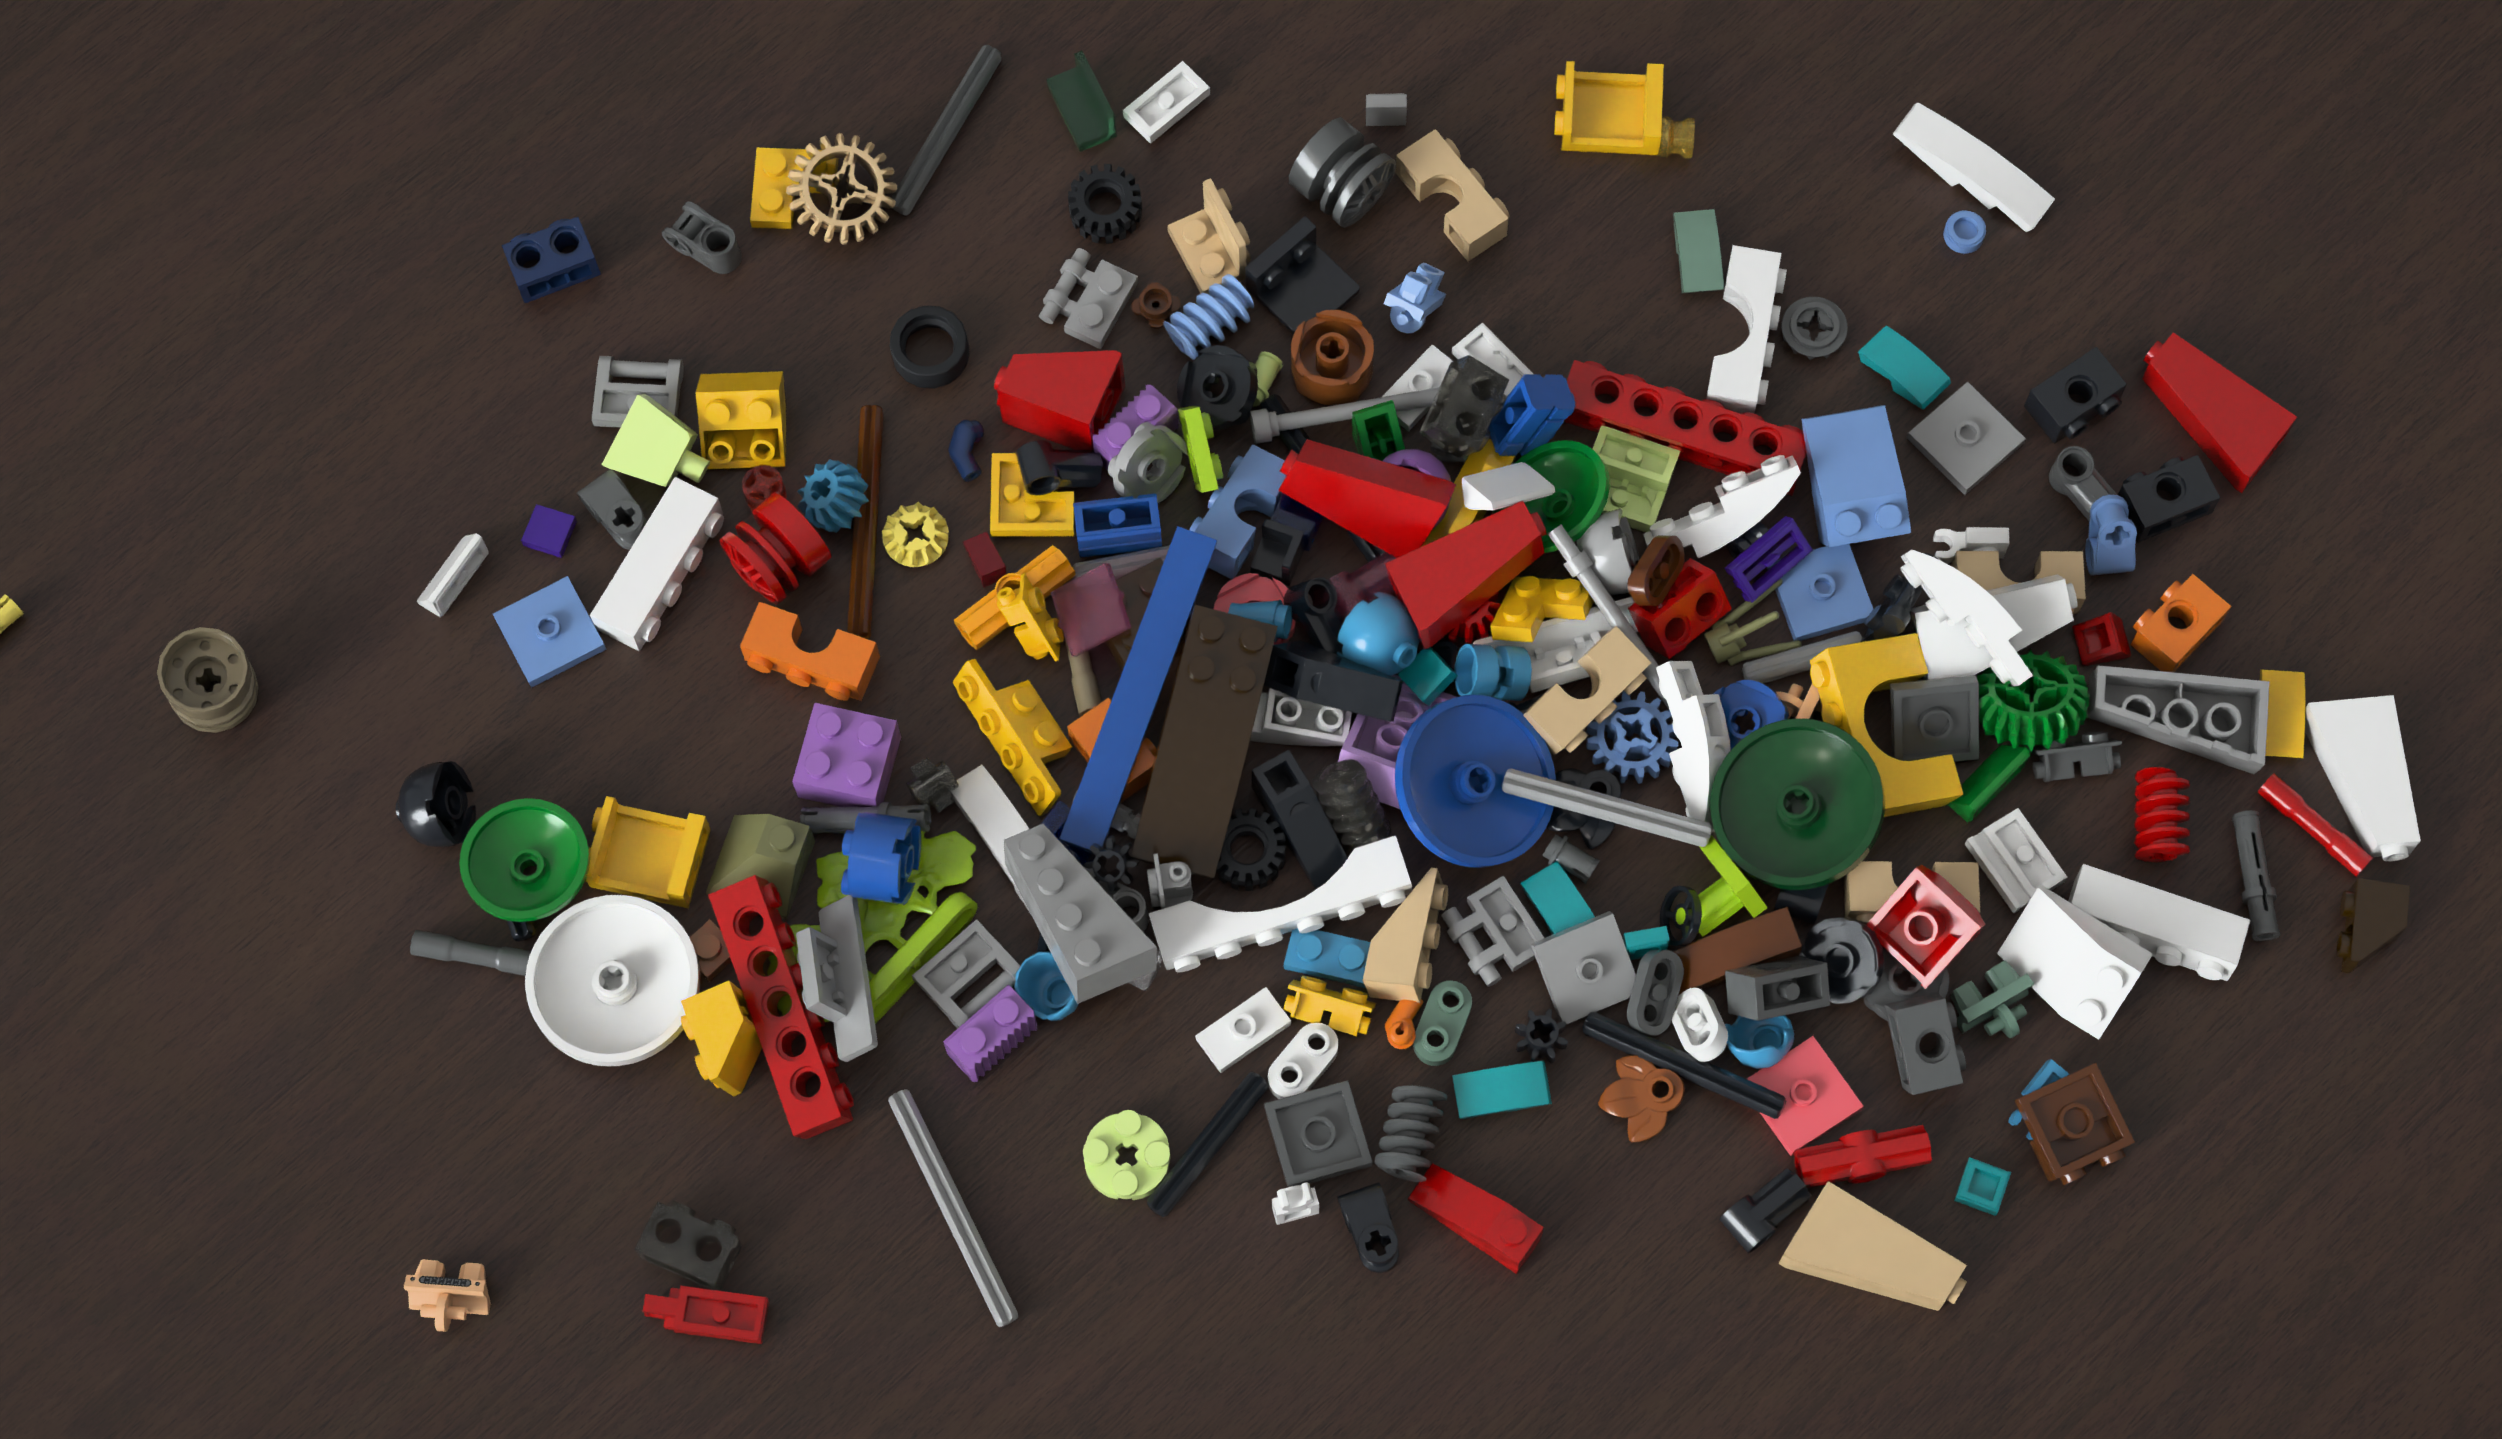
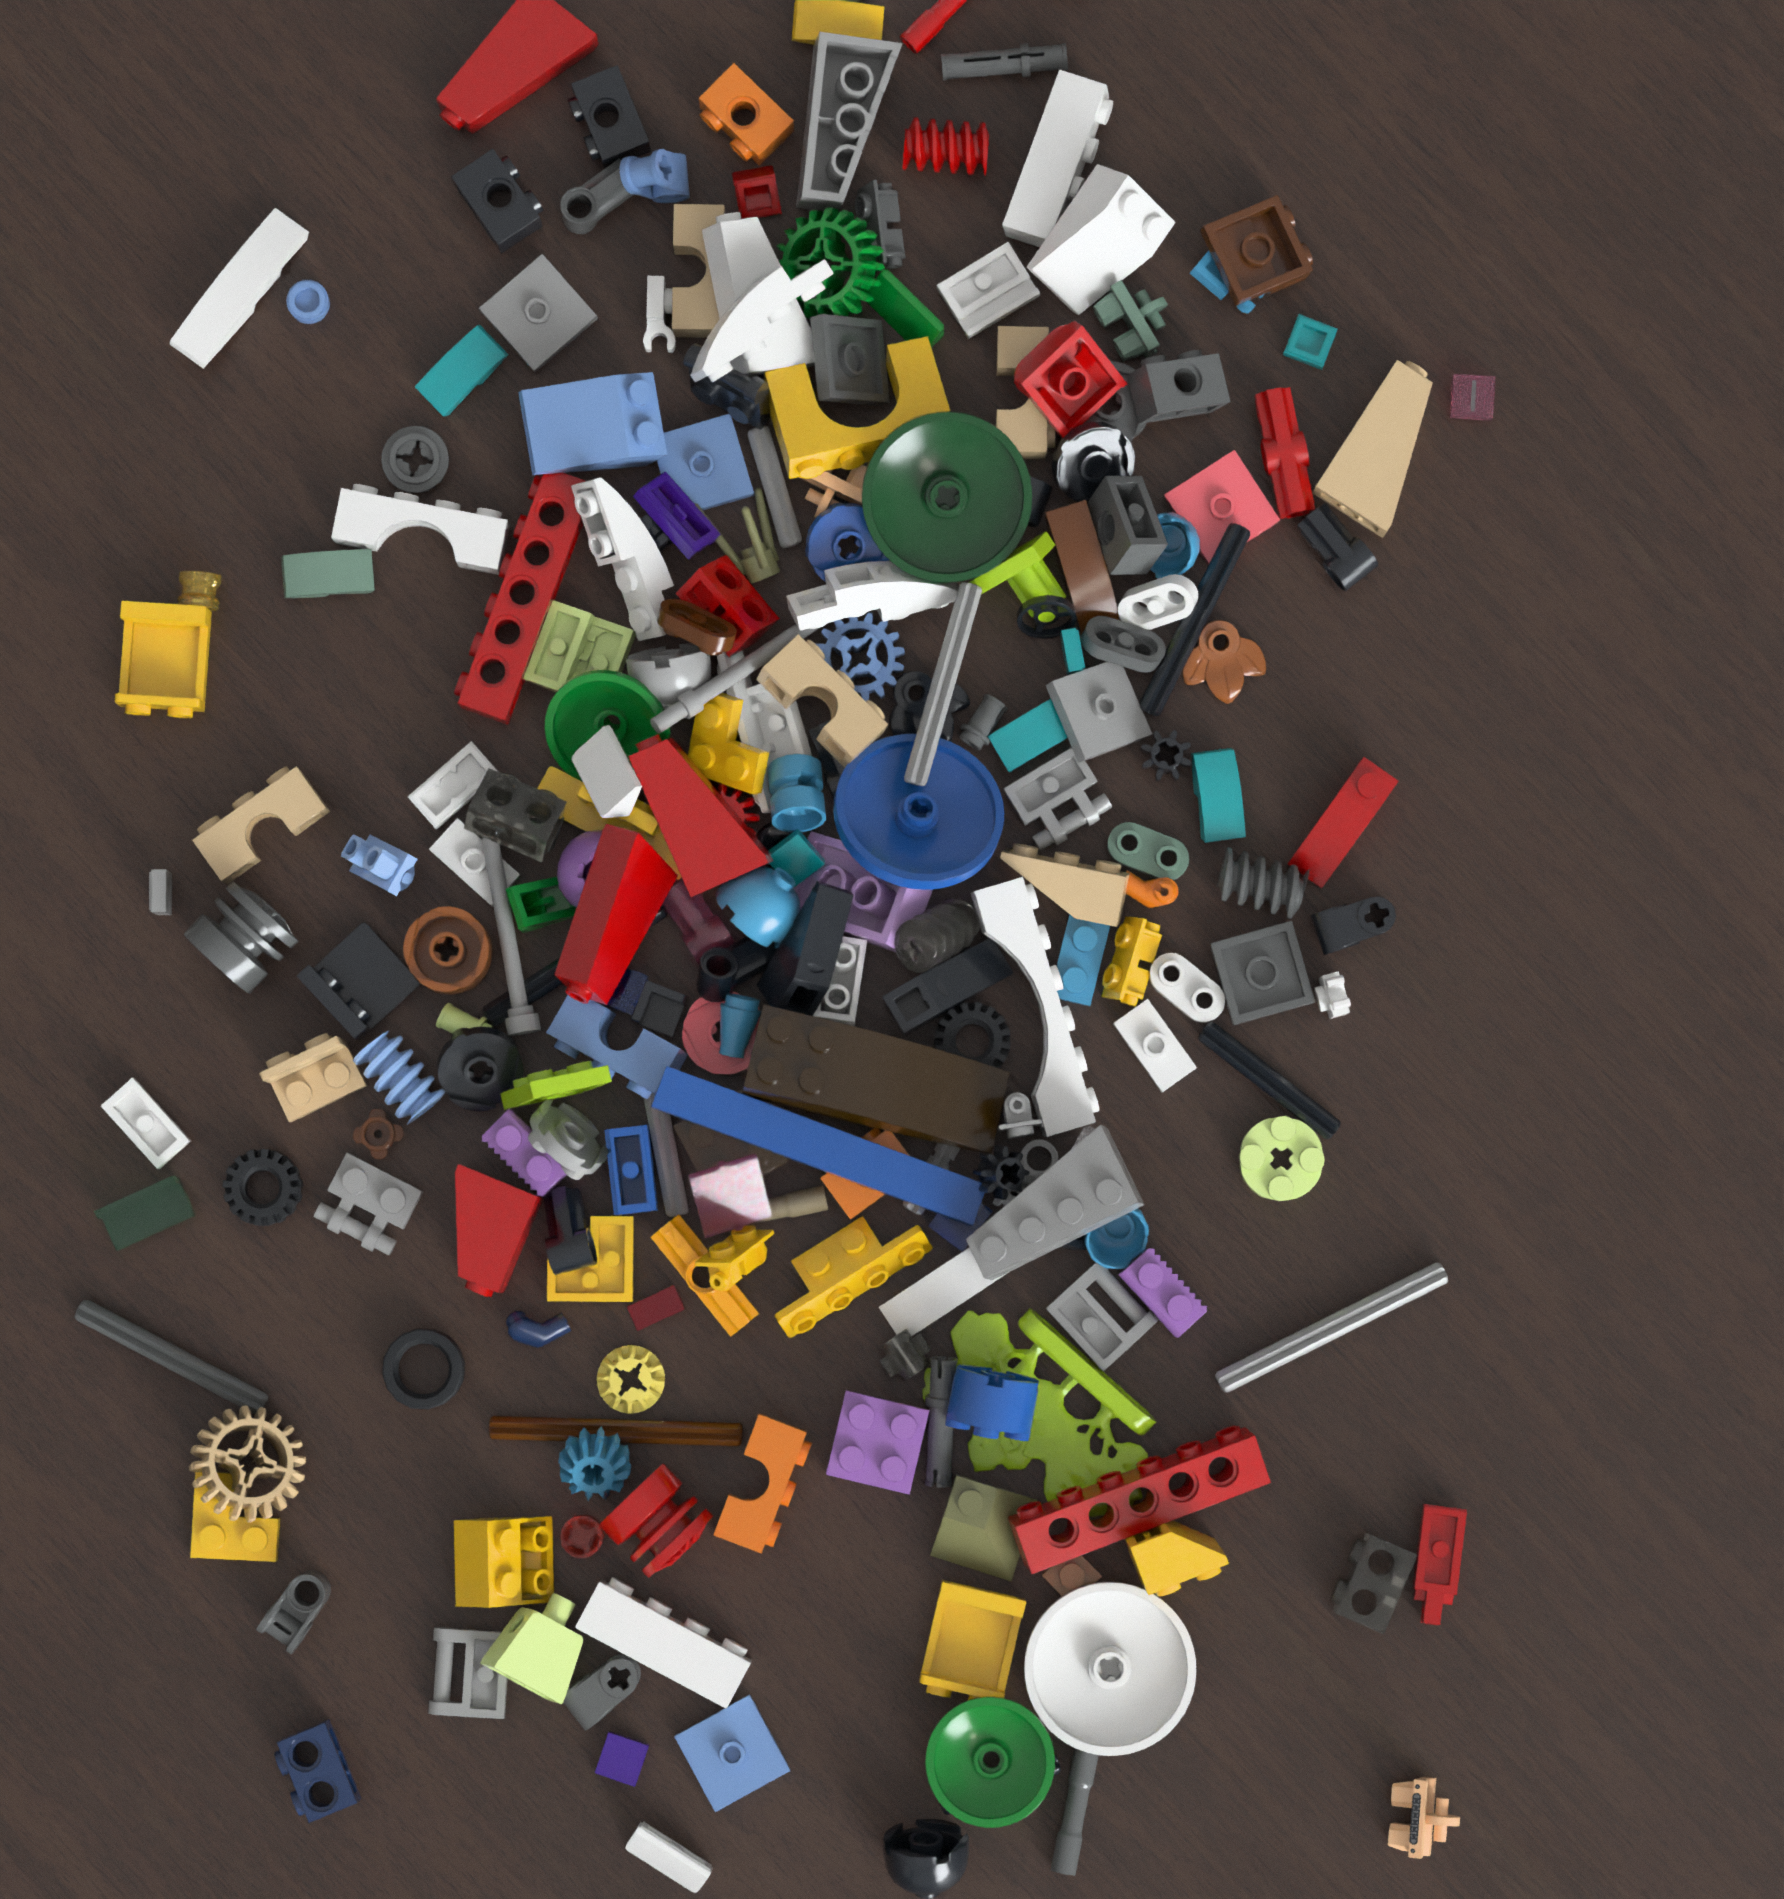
camera: 95 degrees left, 15 degrees up
(838, 978) = (1113, 1442): light grey bracket -> none
(1531, 414) = (521, 745): blue brick -> none
(1933, 1354) = (1472, 397): none -> clear pink tile

